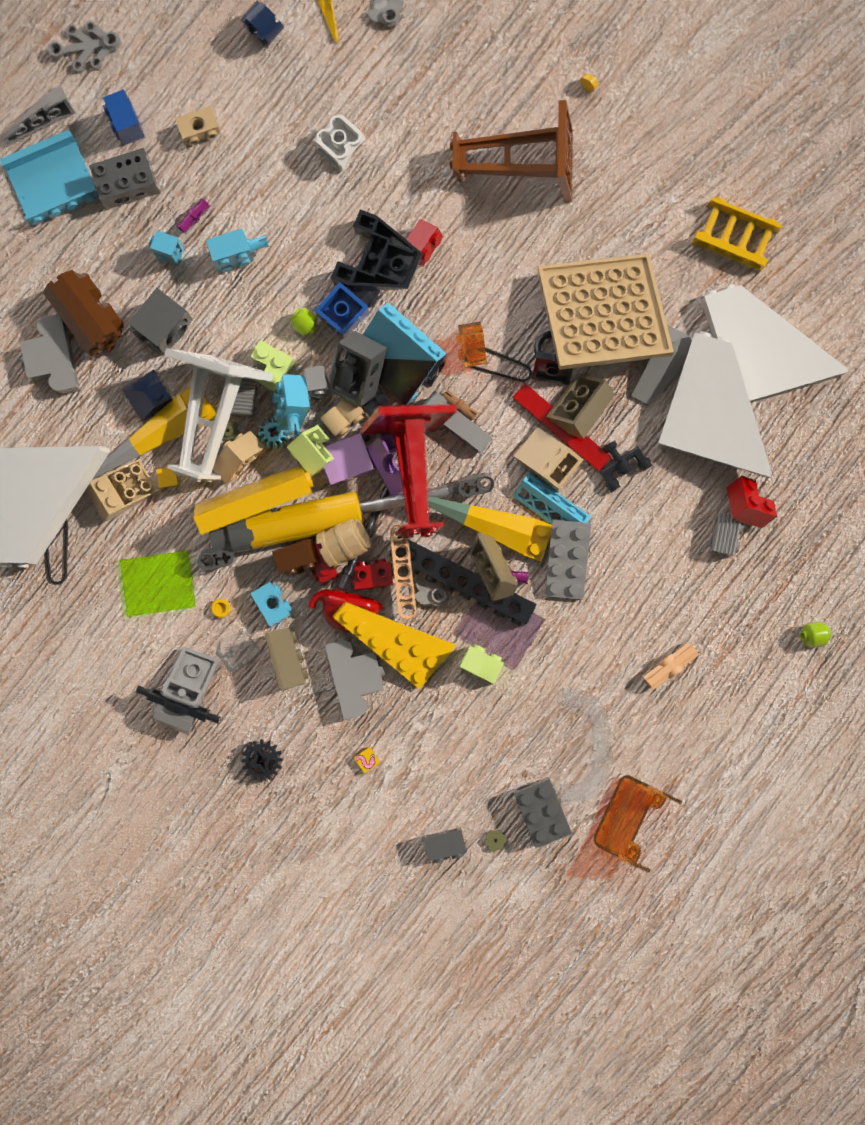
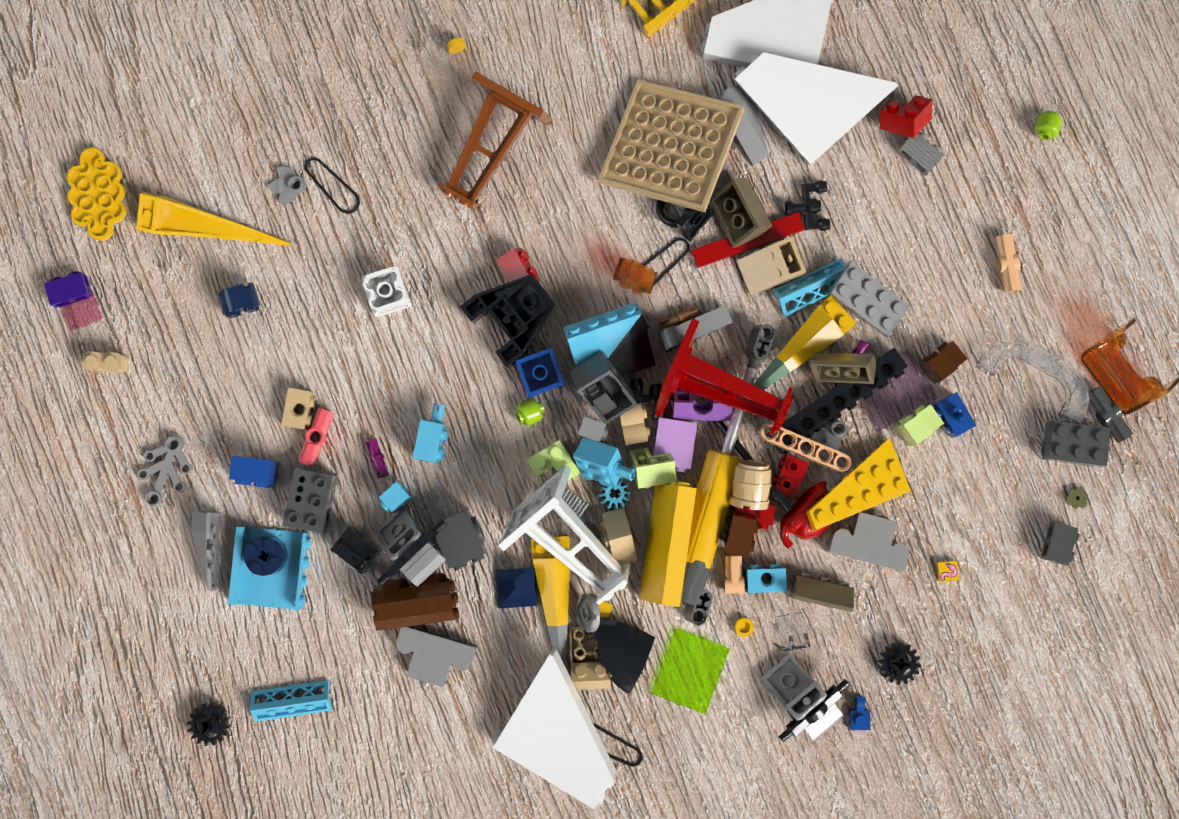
camera: 65 degrees left, 0 degrees up
(54, 158) = (257, 548): none -> dark blue brick
(105, 238) = (356, 549): none -> black piece
(128, 282) = (410, 547): none -> light grey piece
(140, 511) = (622, 651): none -> black brick
(157, 466) = (589, 613): none -> light grey tile
(170, 155) = (311, 449): none -> coral piece
(197, 751) = (859, 716): none -> blue plate
(256, 576) = (733, 577): none -> light nougat piece
(416, 50) = (356, 195): none -> black piece
(507, 690) = (954, 415): none -> blue brick
(549, 655) = (942, 363): none -> reddish brown brick
(585, 828) = (1109, 414): none -> dark grey piece

